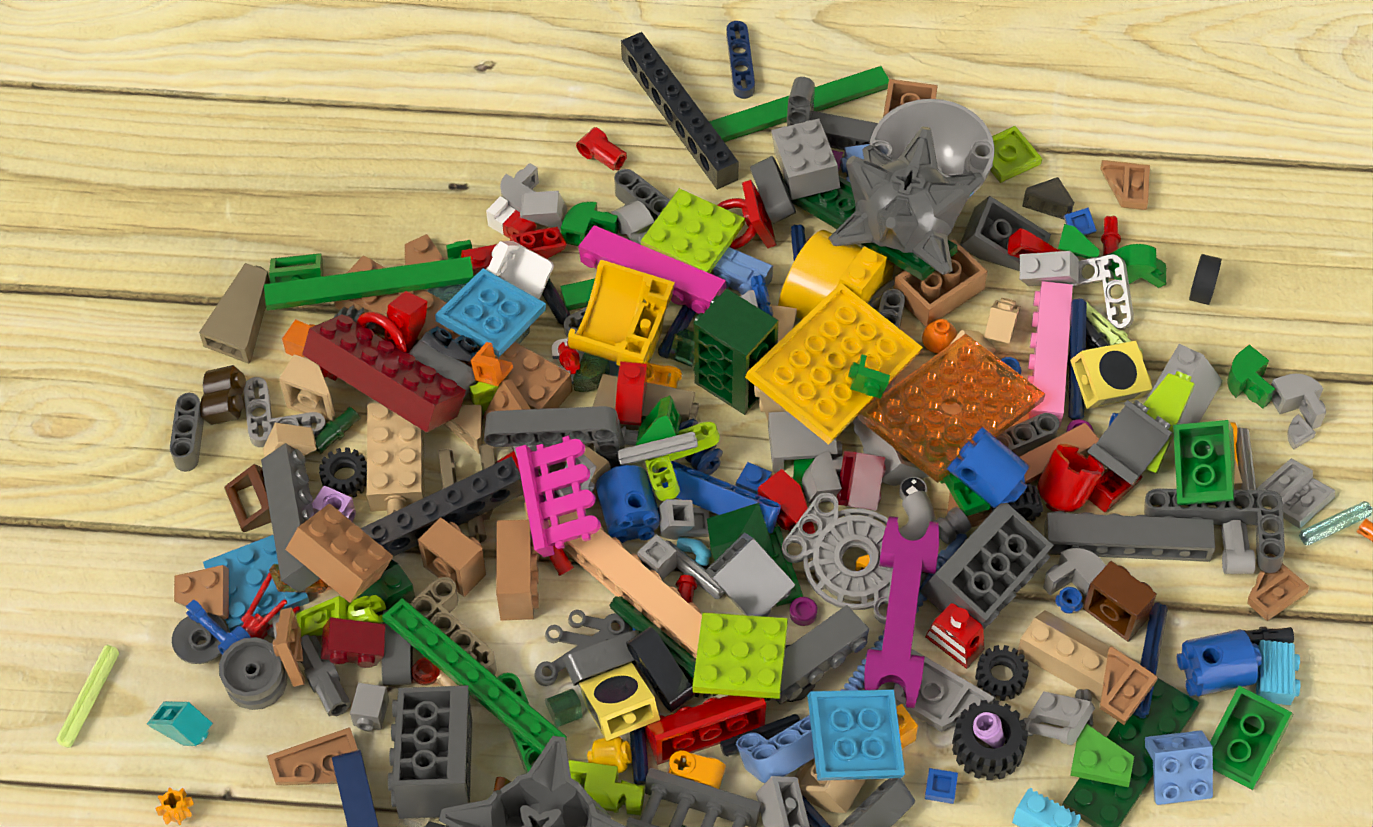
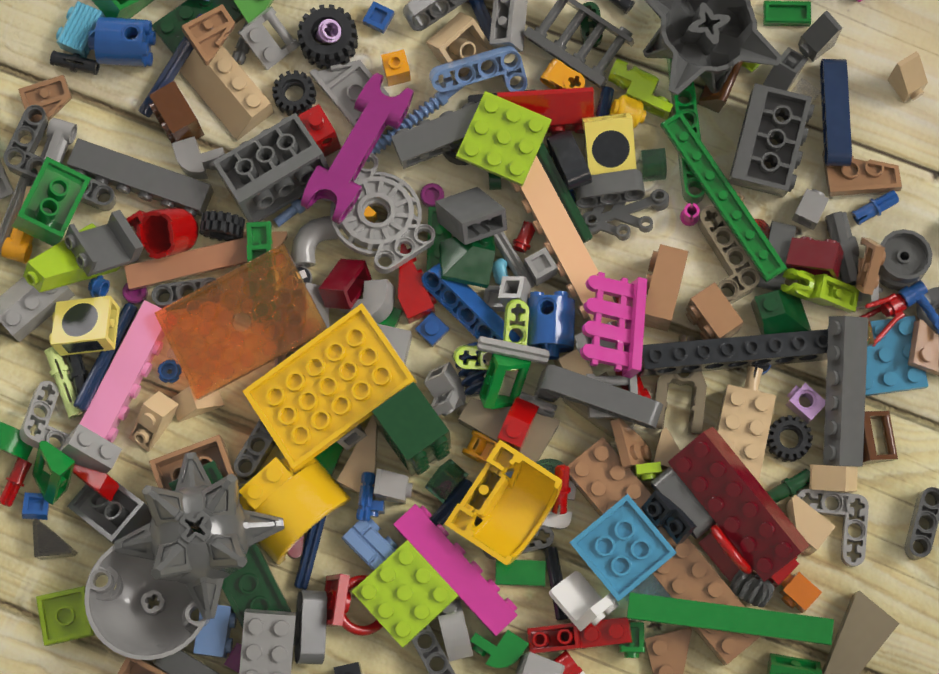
camera: 160 degrees left, 20 degrees up
(222, 395) = (886, 550): dark brown brick -> none
(294, 730) = (875, 207): none -> blue axle
(339, 552) = (815, 317): medium nougat brick -> none
(409, 315) = (705, 558): red slope -> none
(488, 368) = (637, 481): orange panel -> none
(505, 661) = (685, 216): none -> dark pink pin
(715, 410) = (446, 389): none -> light grey brick
(855, 735) = (435, 47): dark azure plate -> none
(867, 380) = (308, 345): green bracket -> none
(938, 335) = (215, 423): orange brick -> none
(952, 525) = (284, 223): flat silver wheel -> none
(990, 469) = (240, 228): blue cylinder -> none
(1072, 594) = (213, 134): blue plate -> none

